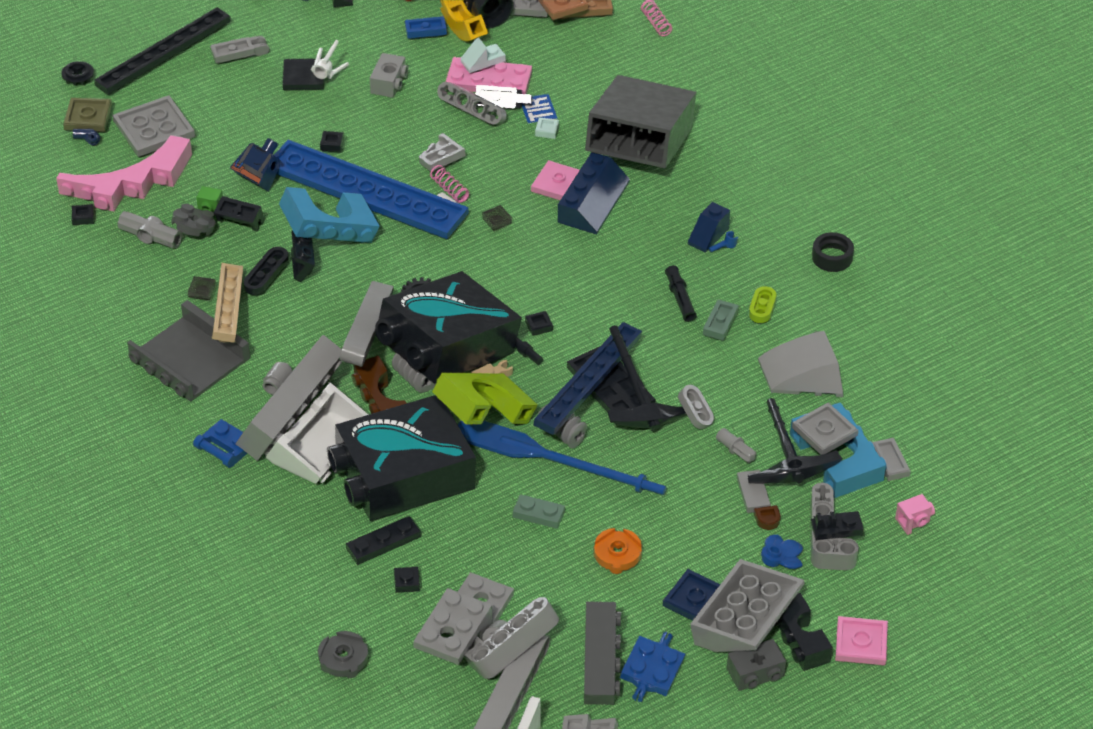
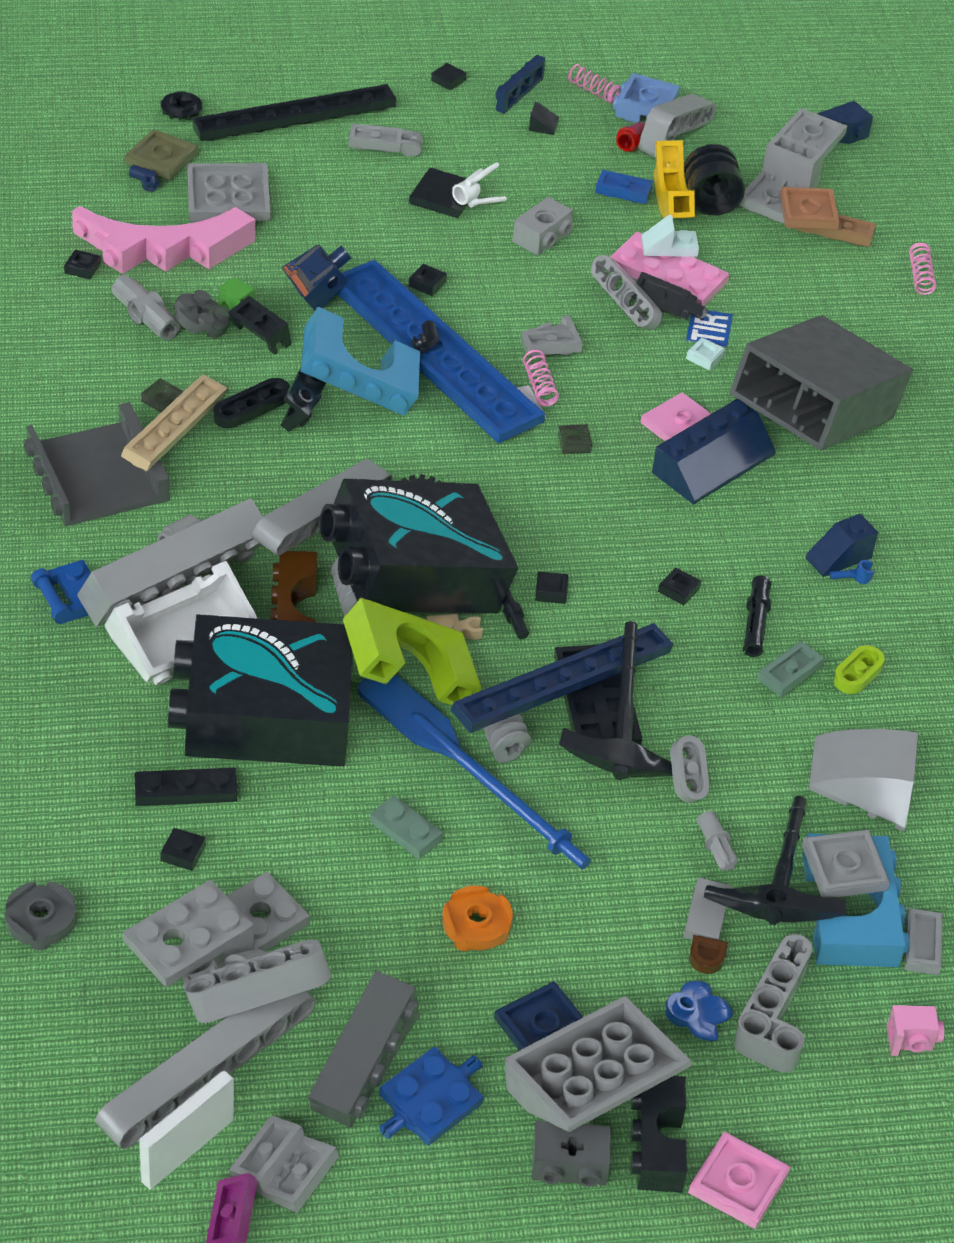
camera: 20 degrees right, 0 degrees up
(362, 182) = (428, 339): none -> black arm
(619, 292) = (679, 586): none -> black tile
(837, 525) = (787, 1003): black plate -> none

